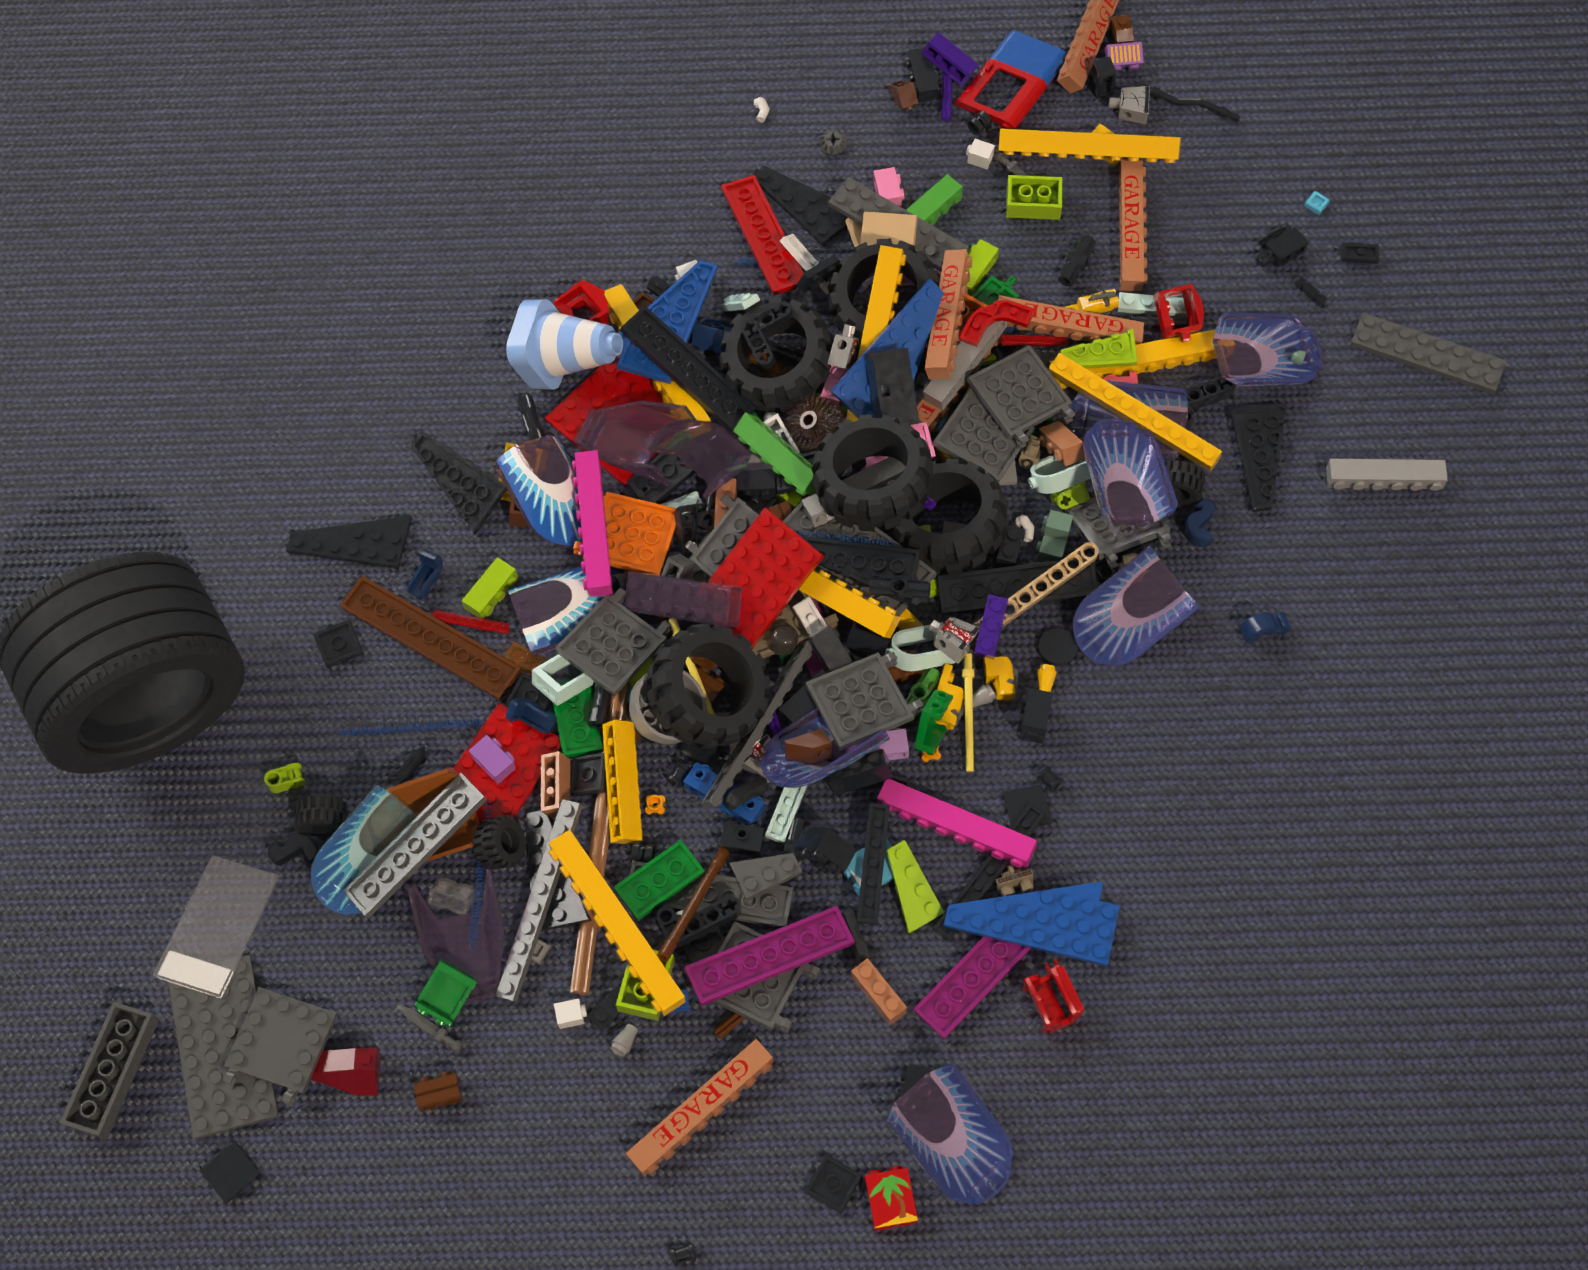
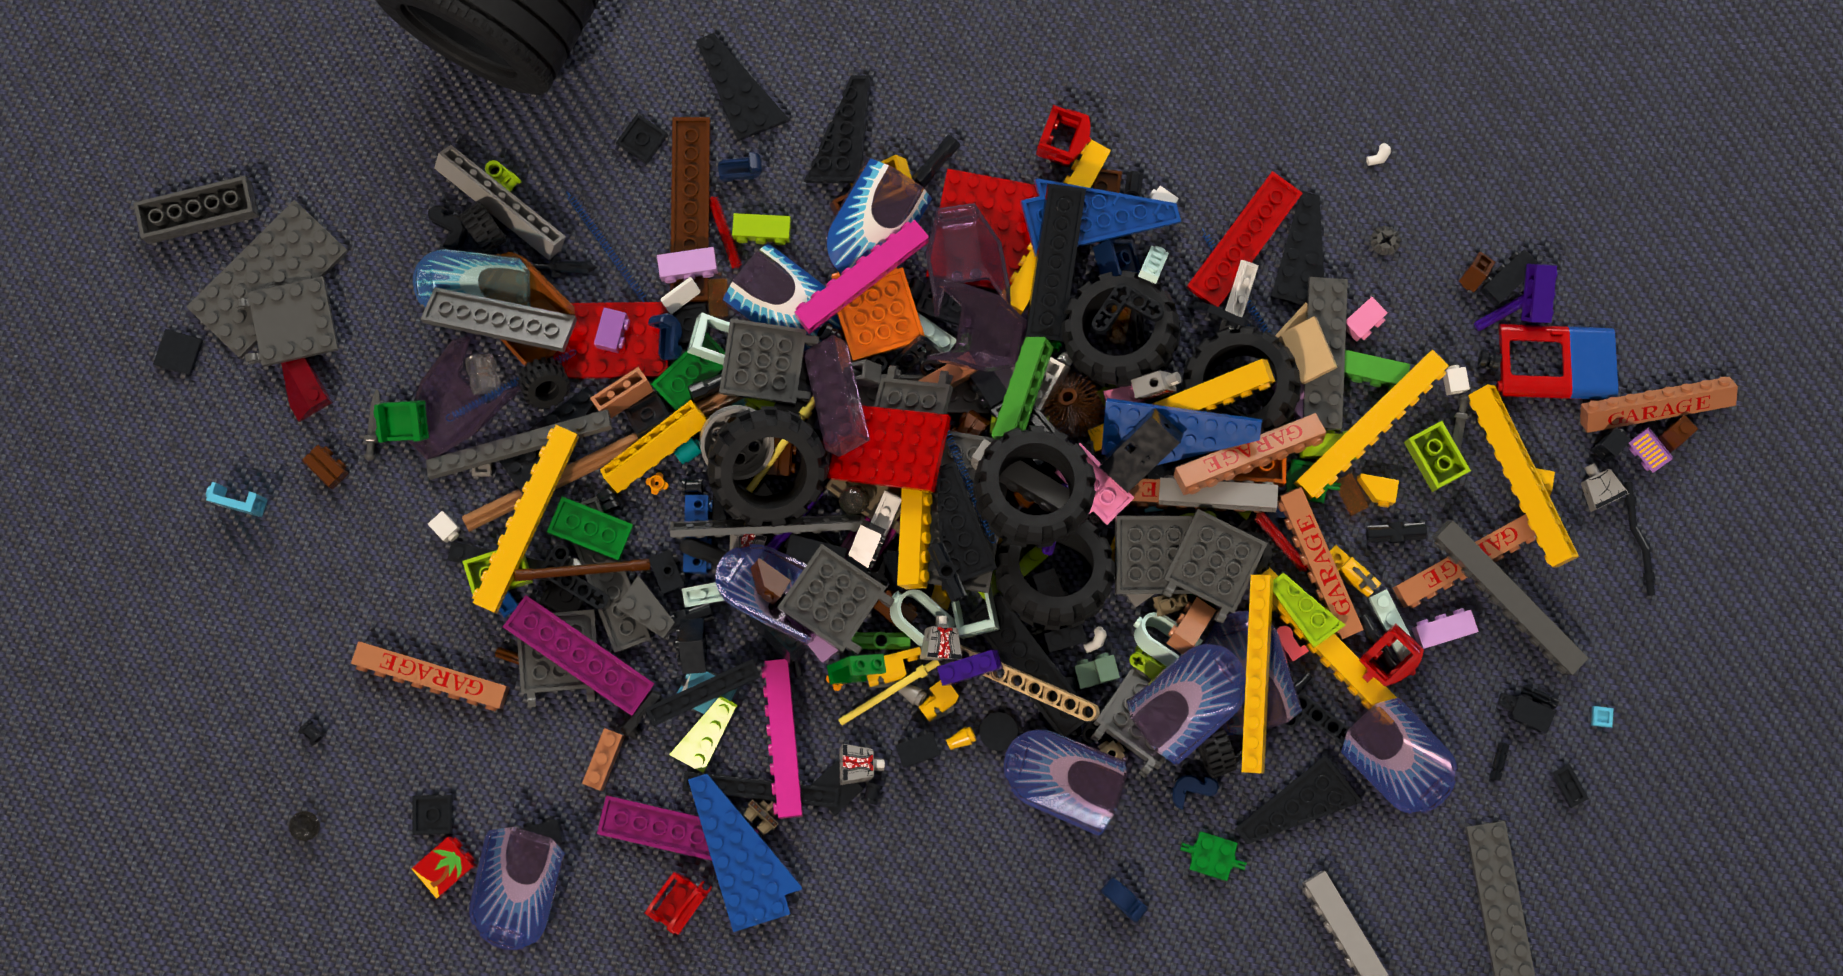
camera: 55 degrees right, 15 degrees up
(216, 926) = (353, 208): clear piece -> none
(281, 798) = (499, 202): none -> light grey brick
(416, 1196) = (254, 504): none -> medium azure panel
(479, 662) = (687, 264): none -> lavender brick
(502, 684) = (680, 295): none -> white slope
(554, 344) = (1007, 134): light blue cone -> none
(623, 1041) = (448, 583): light grey cone -> none
(645, 759) = (688, 450): none -> teal brick
(958, 606) = (980, 627): none -> light aqua window
(979, 223) = (1367, 428): none -> yellow brick
(996, 312) = (1269, 493): red plate -> none
(1017, 774) = (857, 764): none -> torso
(1026, 276) = (1351, 495): none -> clear orange tile
(1033, 252) = (1379, 489): none -> yellow slope
(1180, 265) = (1445, 628): none -> lavender brick
(1181, 207) = (1509, 597): none -> dark grey brick
(1266, 540) = (1213, 856): none -> green plate
(1297, 357) = (1417, 787): sand green hinge -> none

